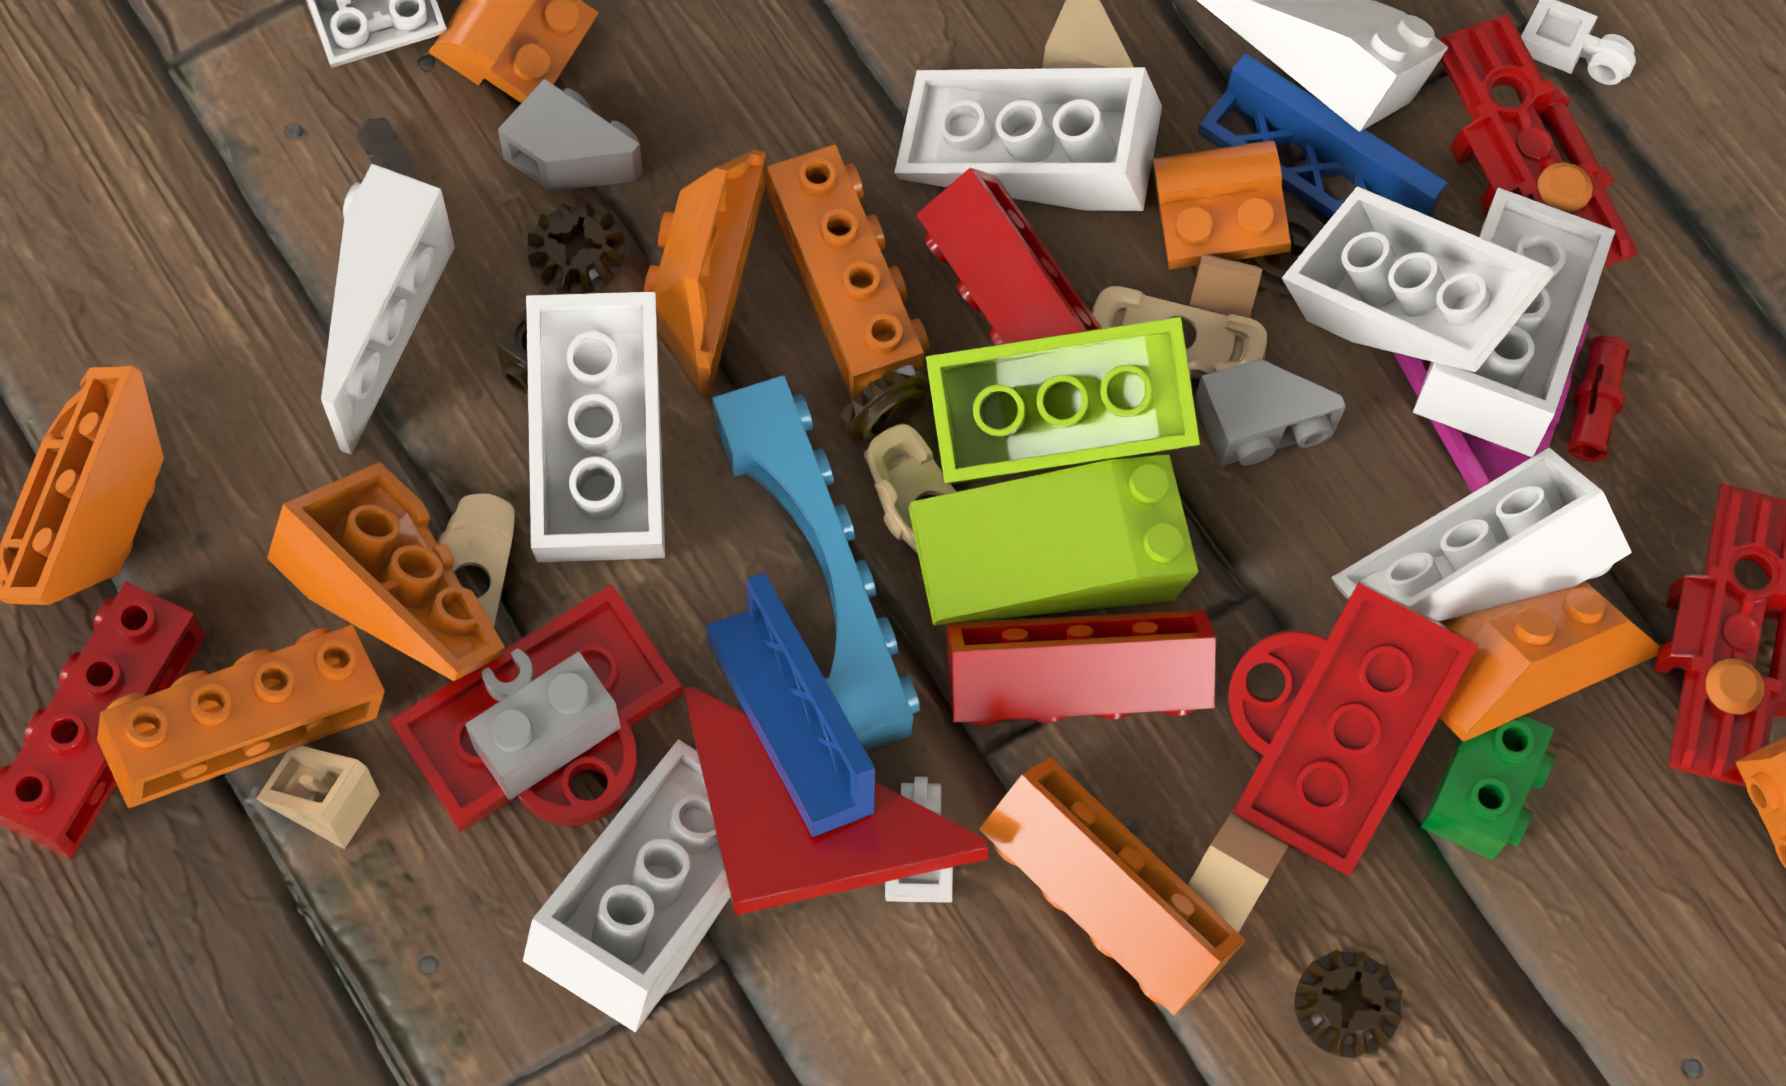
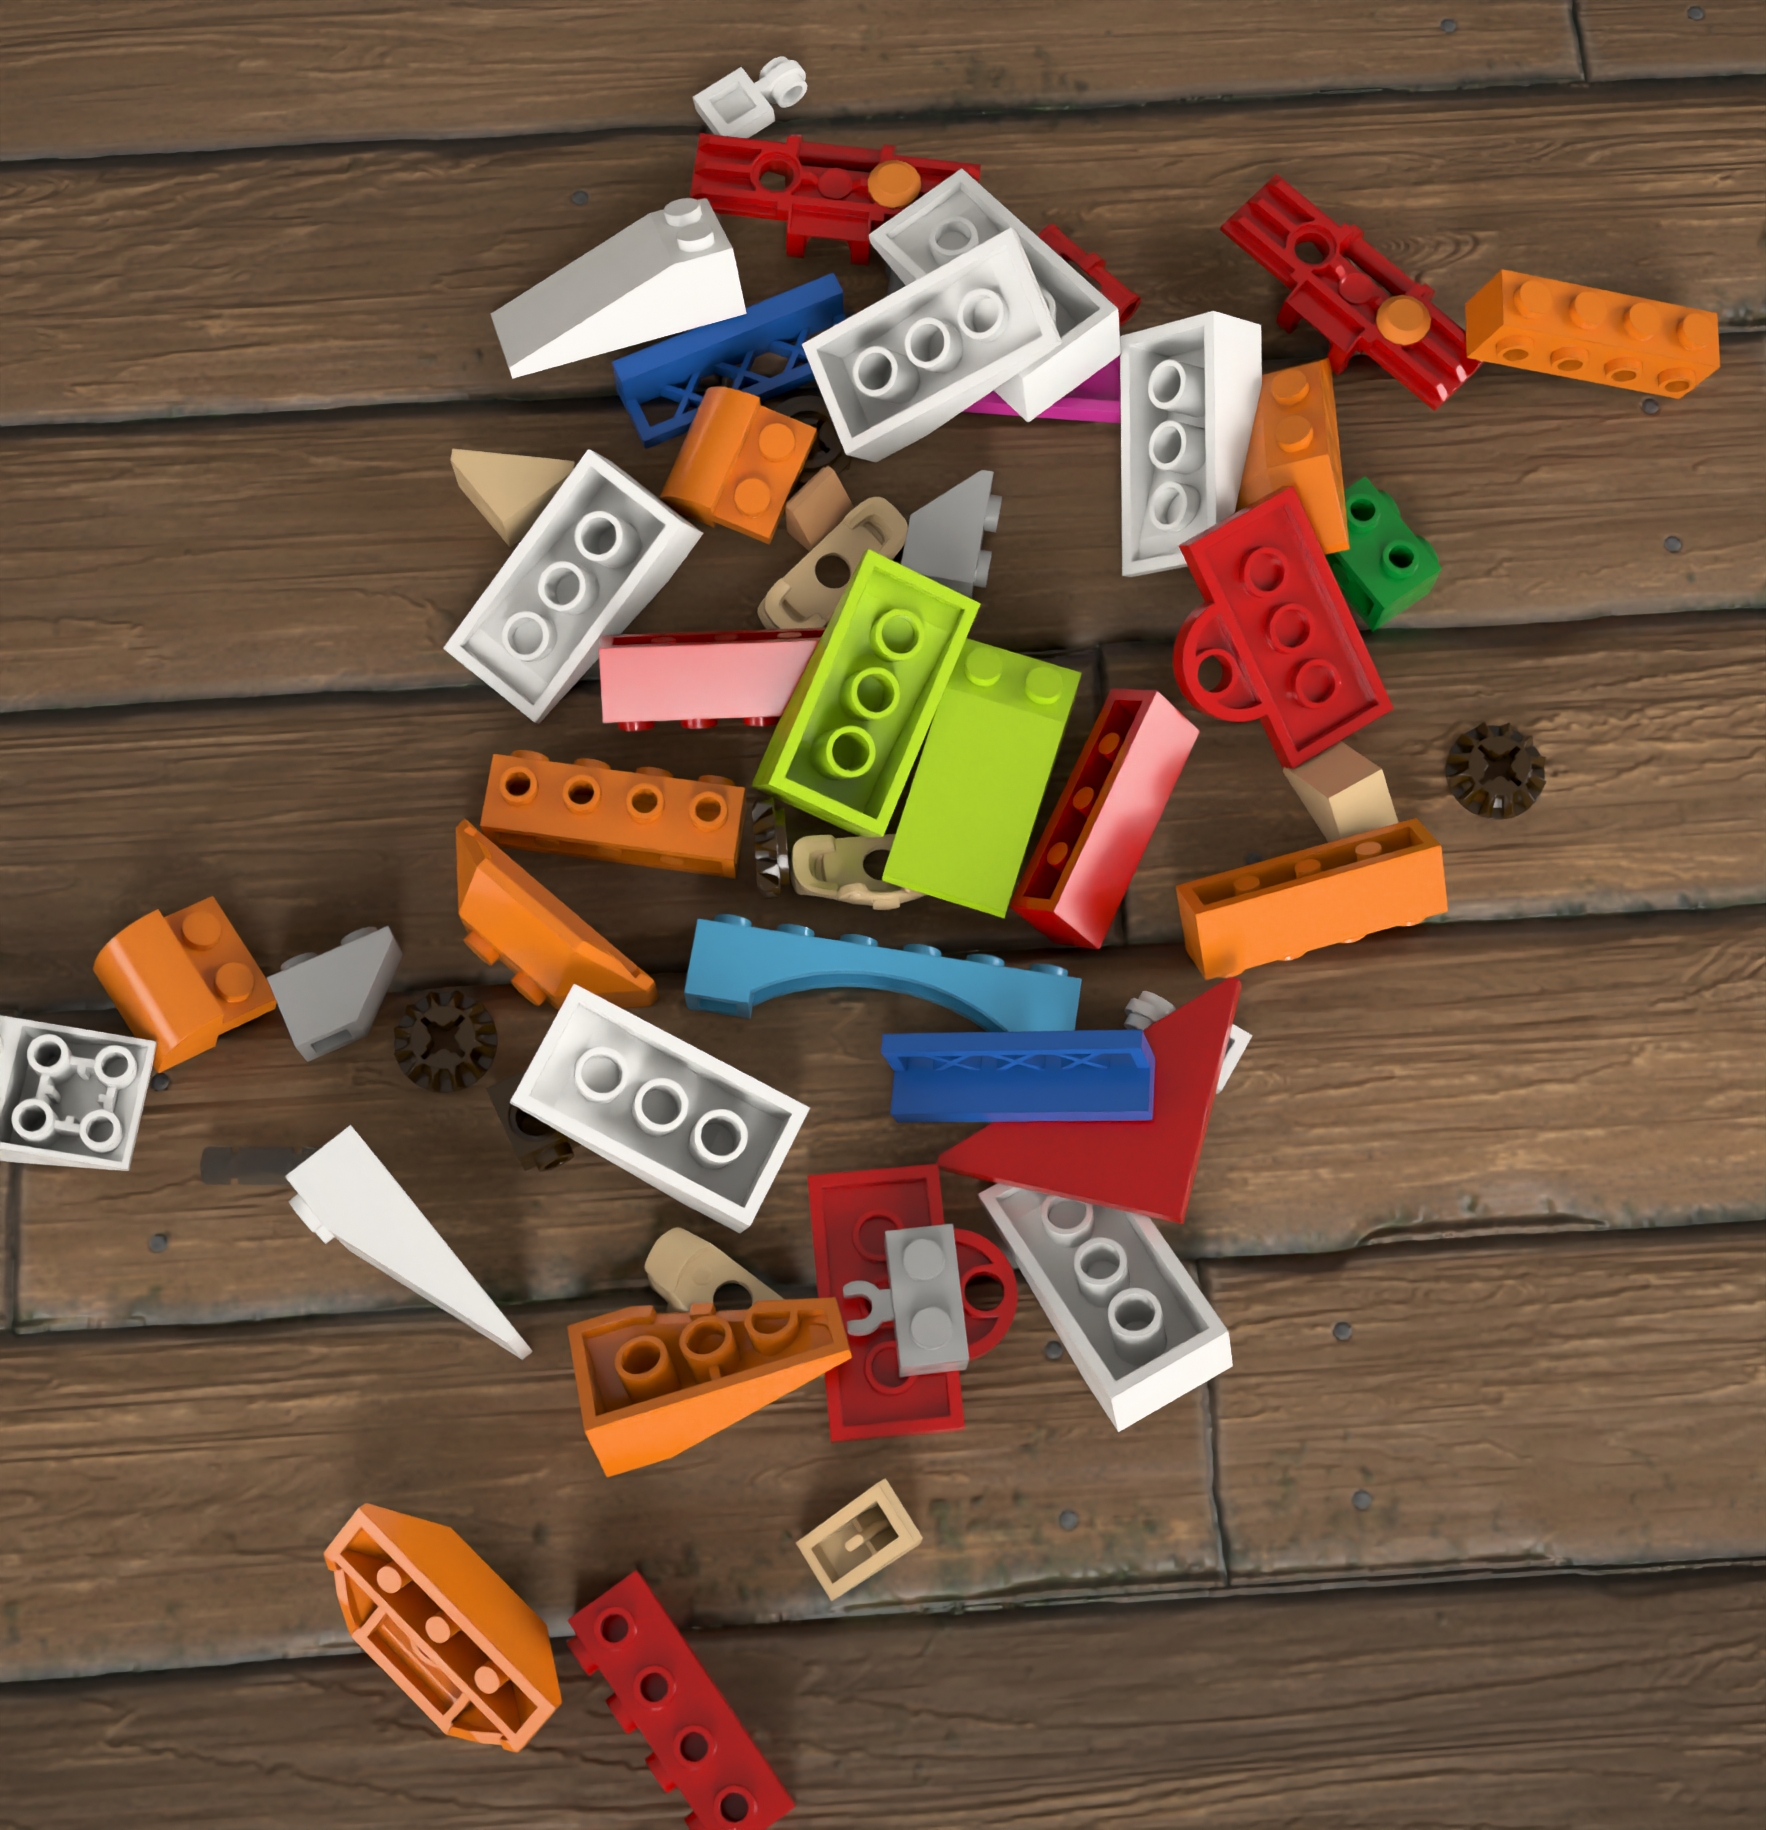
camera: 60 degrees left, 5 degrees up
(238, 714) = (762, 1575): orange brick -> none

